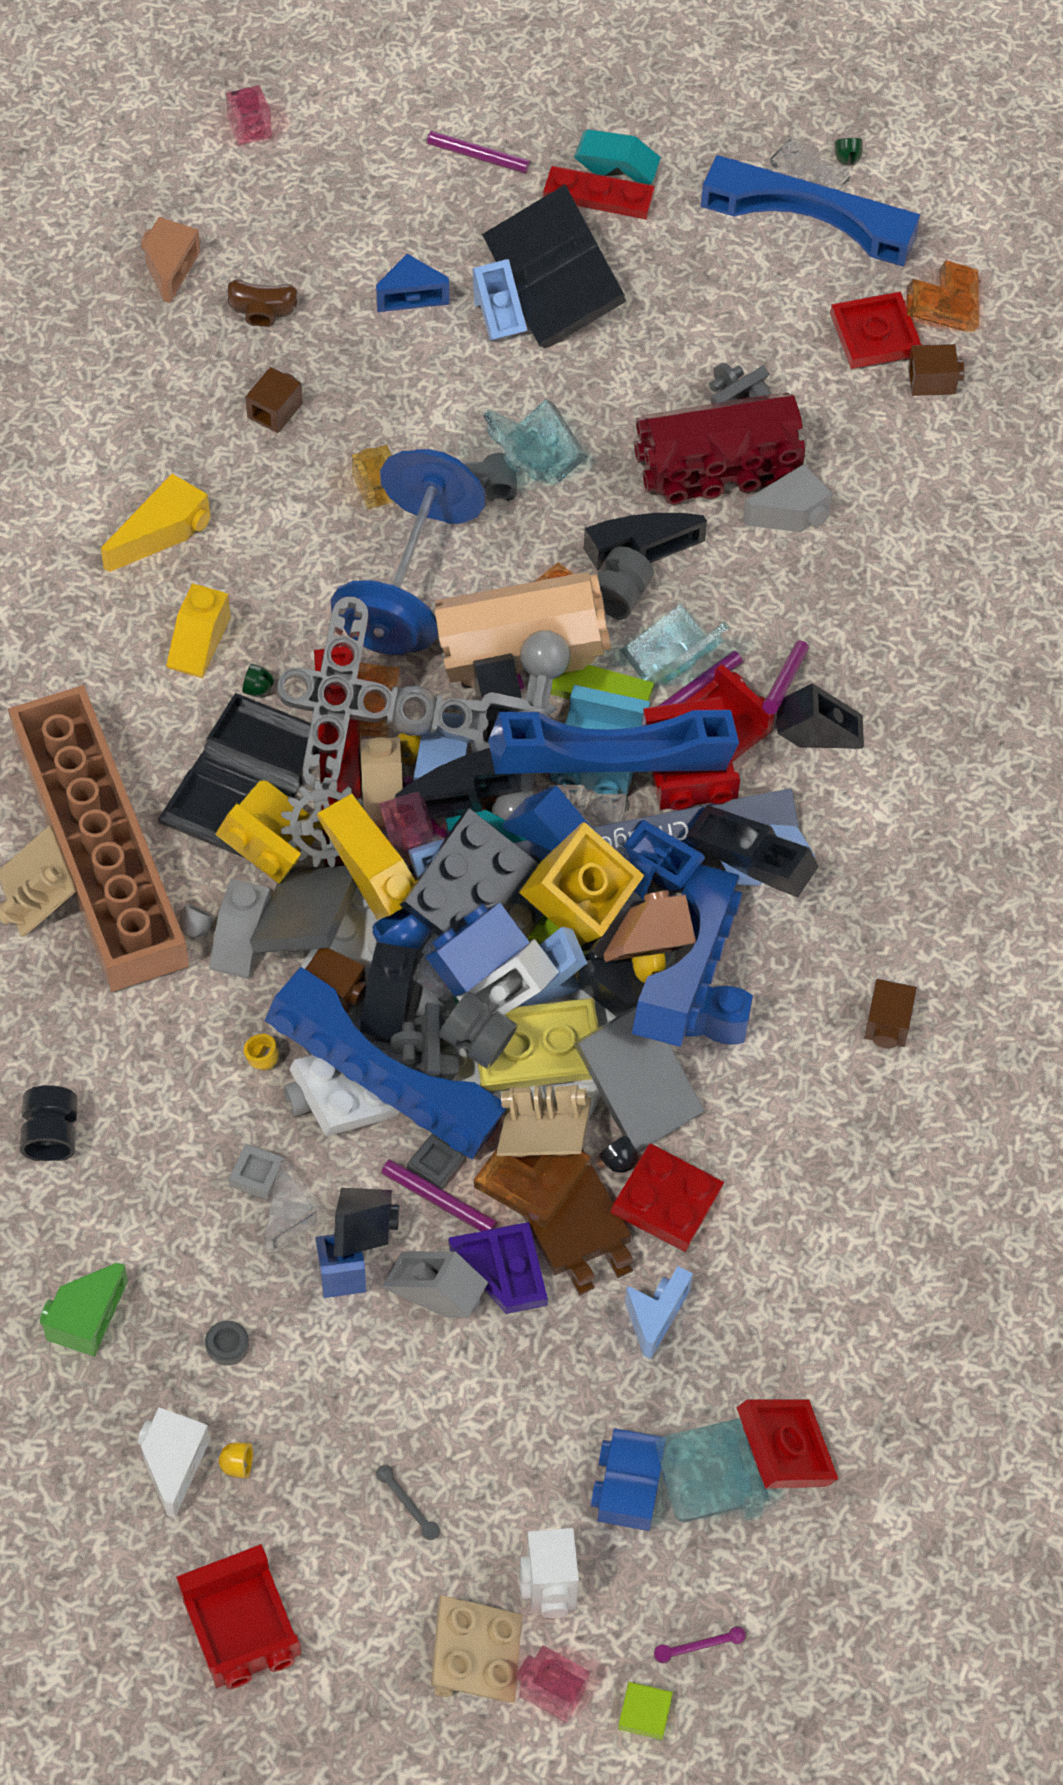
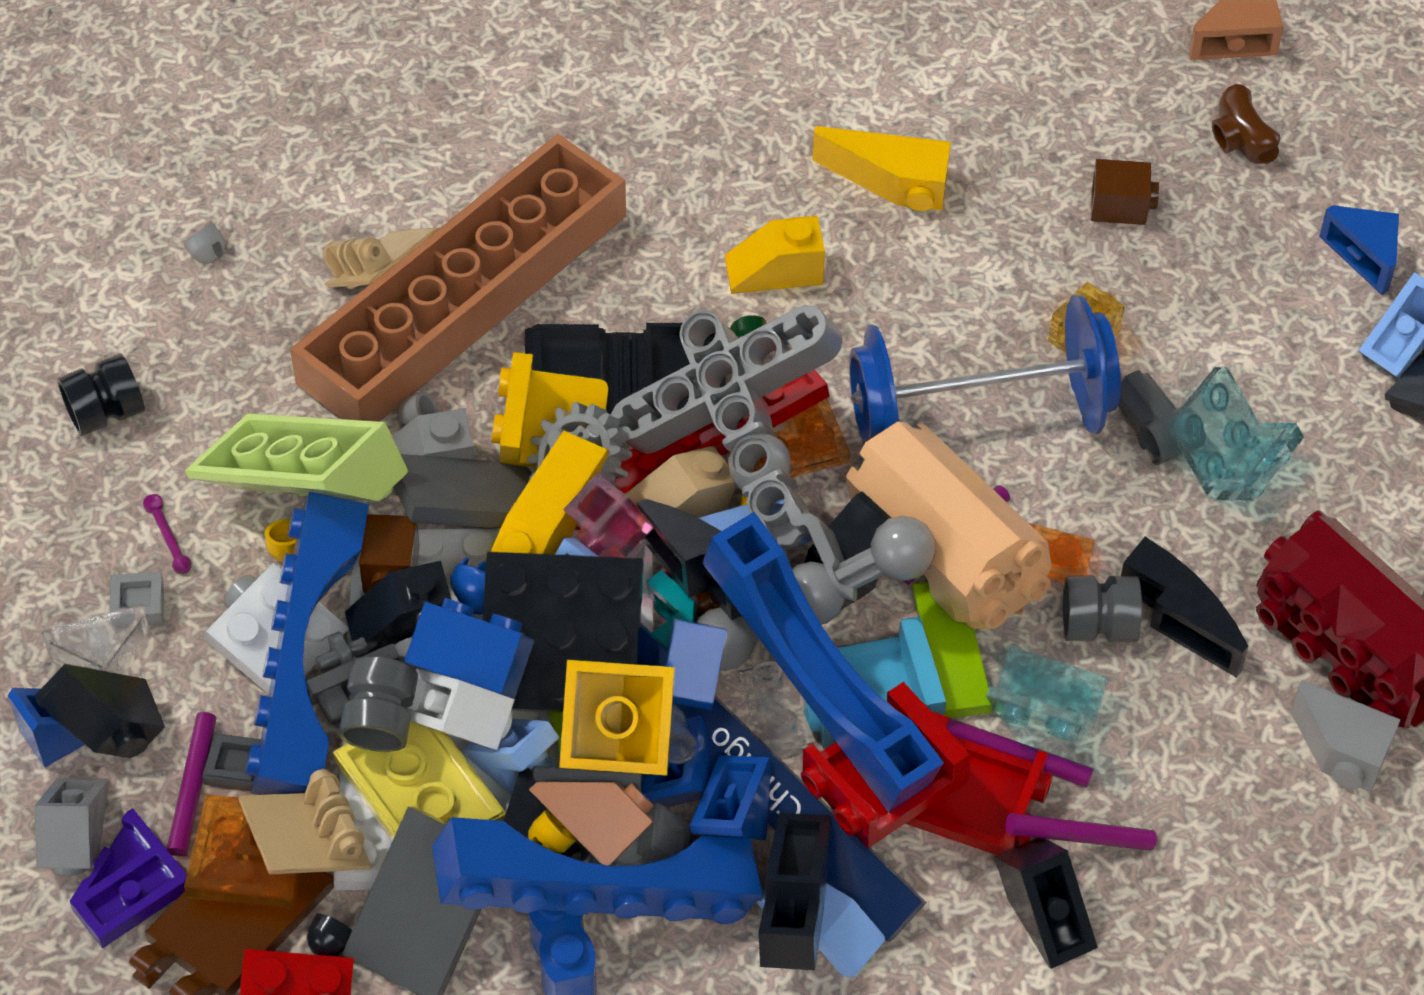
camera: 65 degrees right, 5 degrees down
(166, 1132) = (154, 504): none -> magenta hinge
(225, 996) = (303, 457): none -> yellowish green slope

